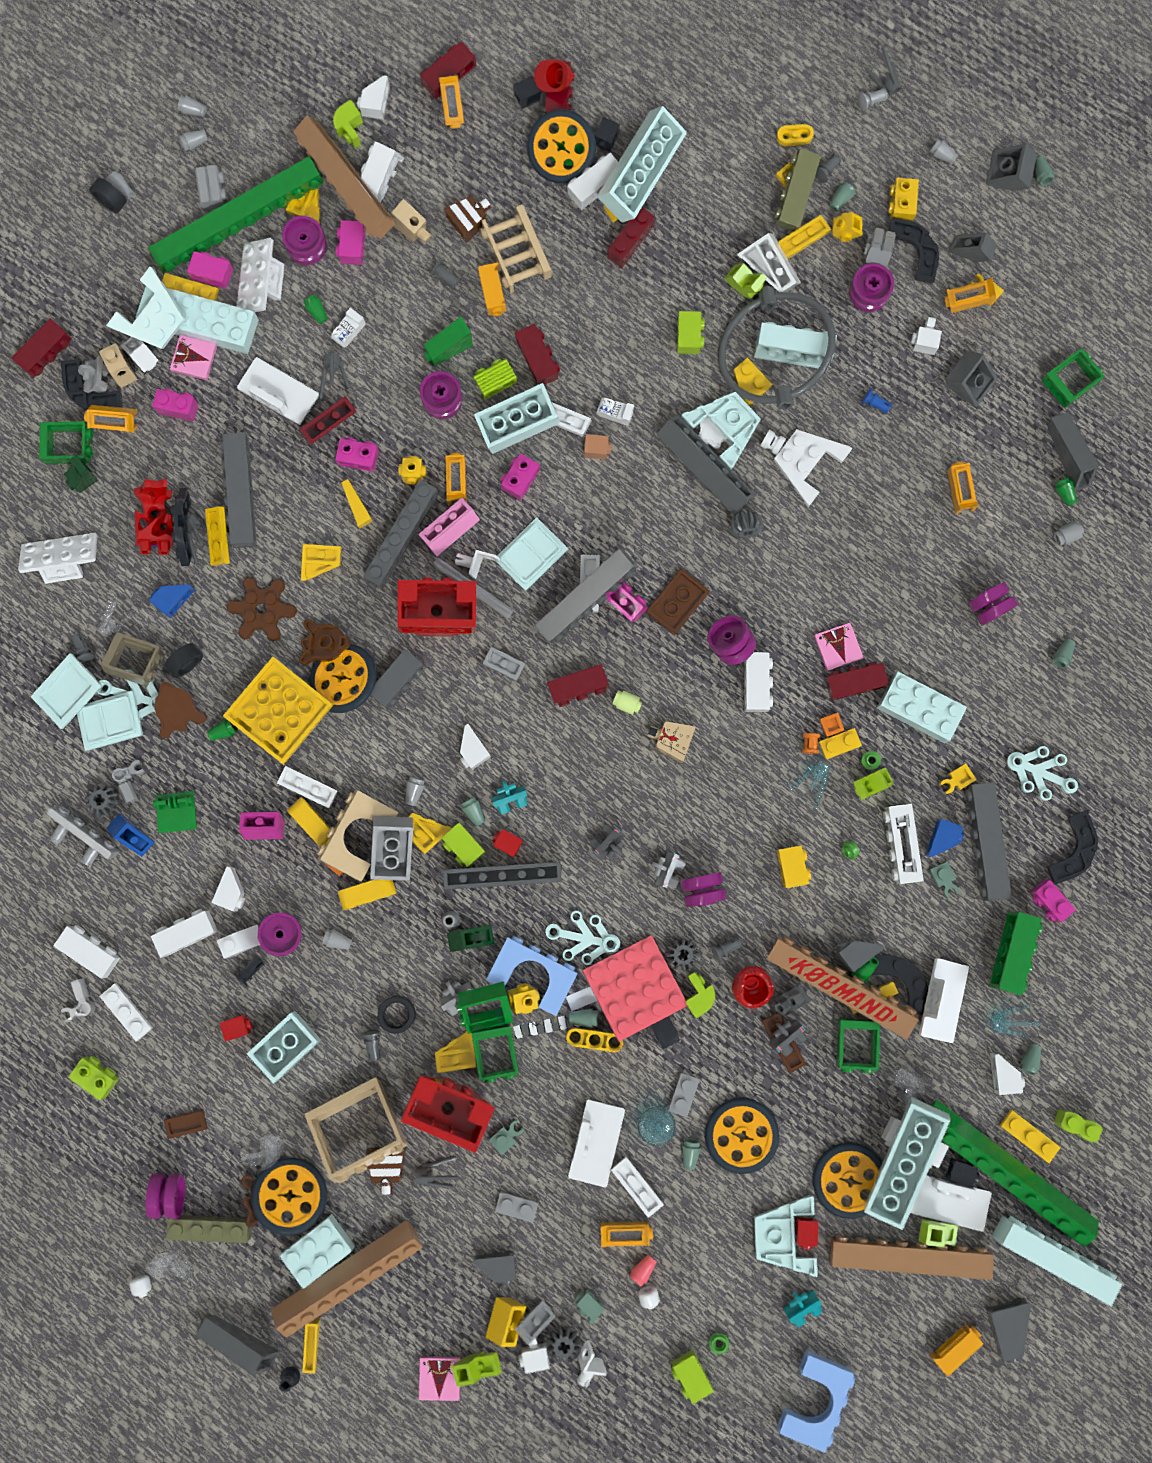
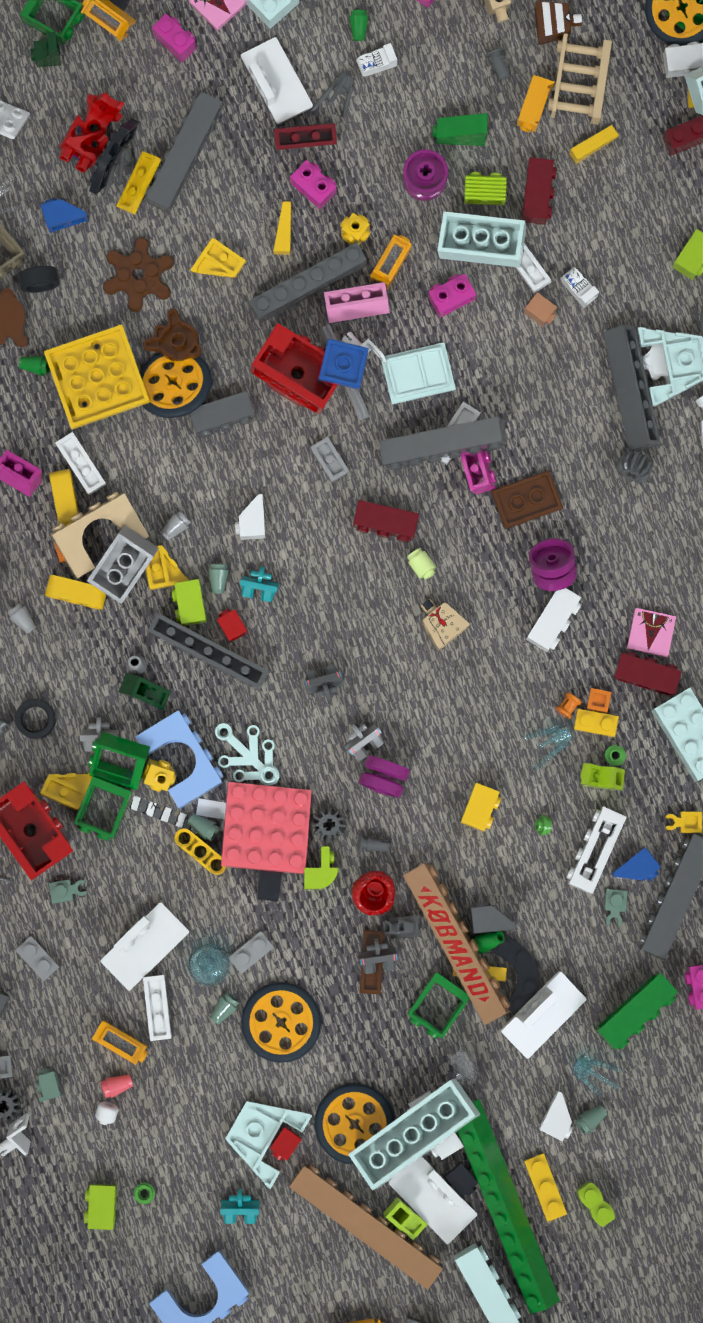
camera: 30 degrees right, 0 degrees up
(470, 581) = (343, 364): none -> blue tile
(557, 294) = (593, 144): none -> yellow piece

